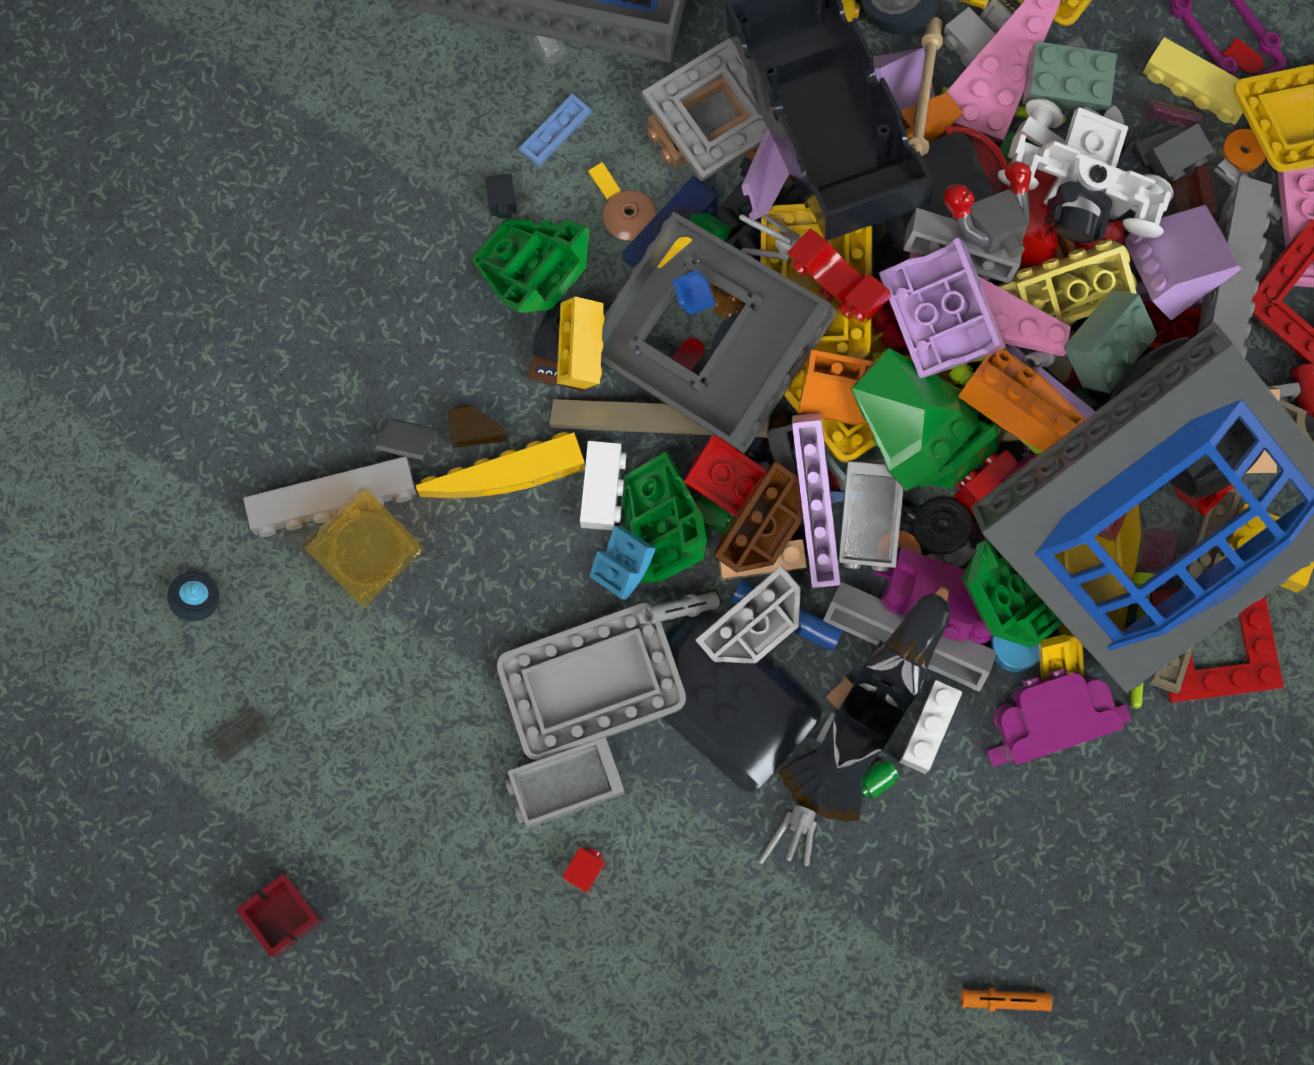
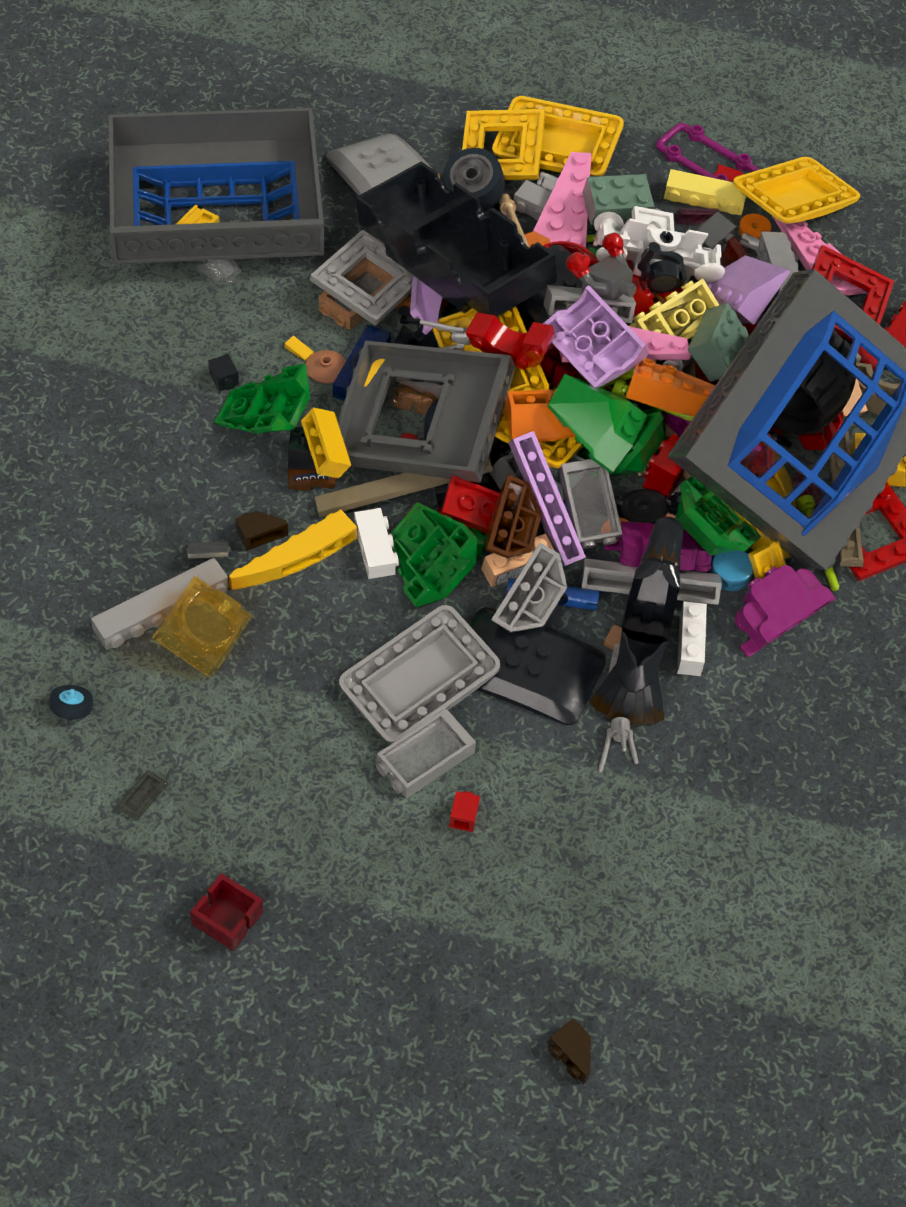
camera: 25 degrees left, 20 degrees down
(555, 130) = (248, 325): medium blue tile -> none
(622, 563) = (412, 586): dark azure slope -> none
(694, 292) = (403, 381): blue panel -> none
(704, 602) = (474, 603): light grey pin -> none
(879, 778) = (669, 683): green brick -> none
(1040, 1002) = (819, 813): orange pin -> none

